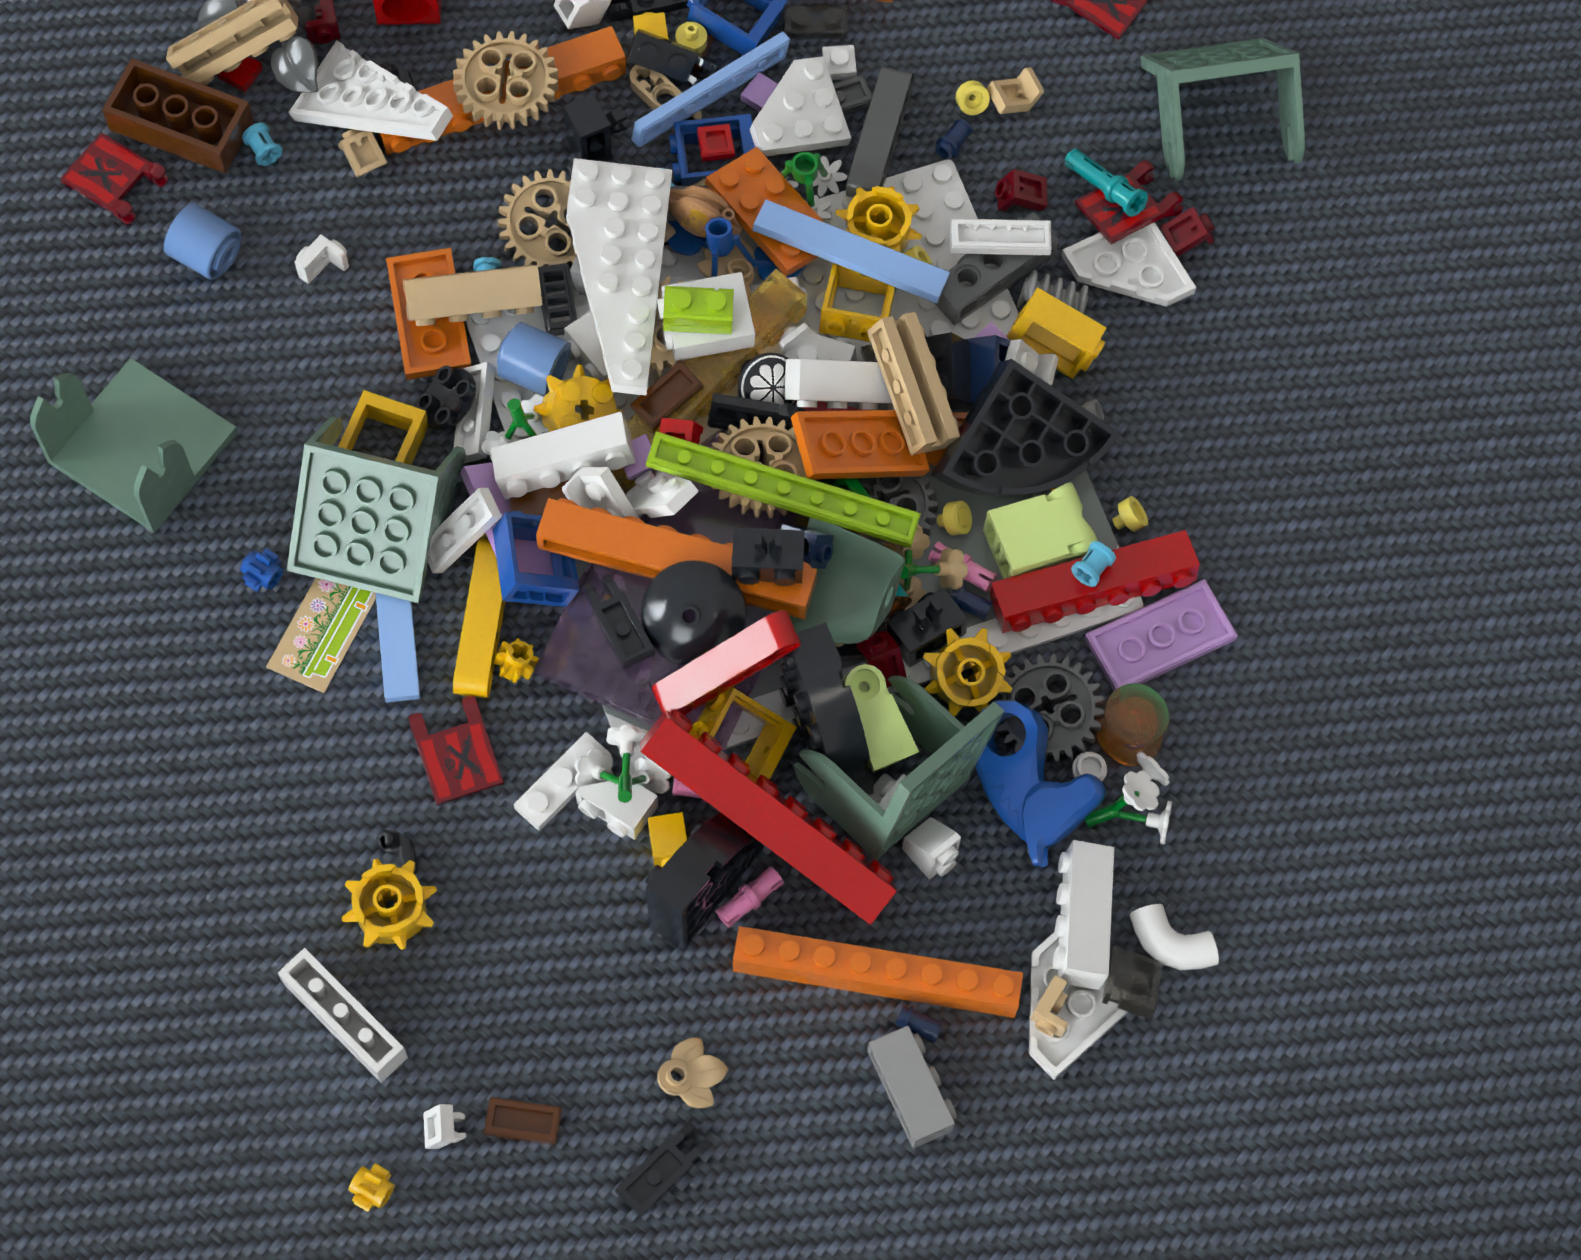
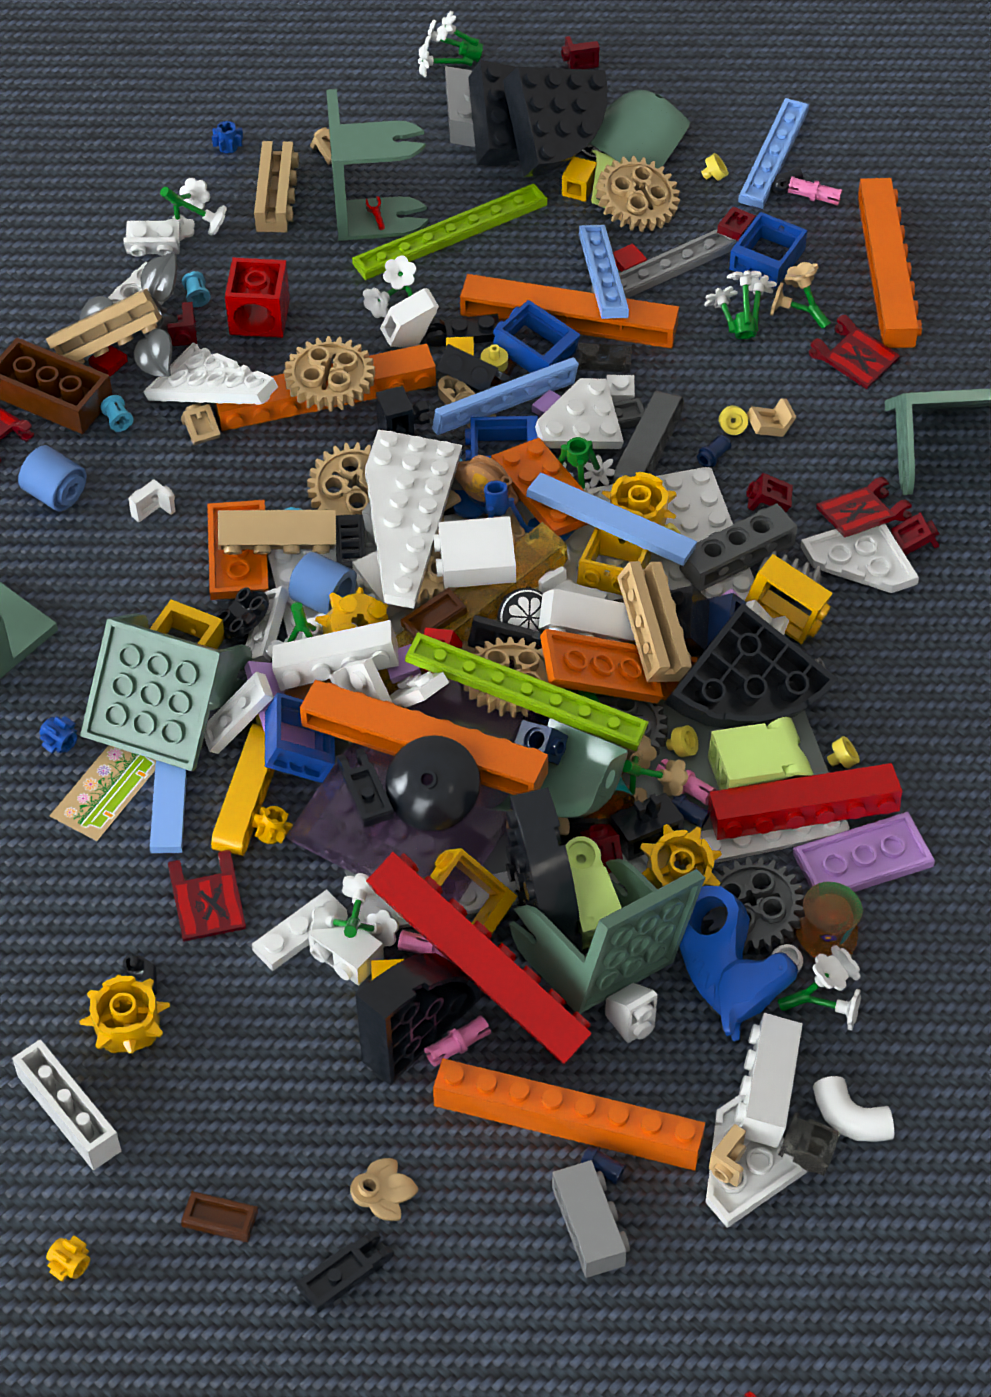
camera: 10 degrees right, 15 degrees down
(440, 1126) = (140, 1212): white tile -> none
(698, 310) = (467, 538): lime brick -> none
(715, 142) = (504, 433): red tile -> none
(727, 664) = (458, 818): beam -> none
(768, 556) = (504, 735): black brick -> none
(1001, 236) = (745, 517): white plate -> none
(1093, 564) = (803, 780): medium azure bush -> none
(1115, 188) = (852, 493): teal pin -> none

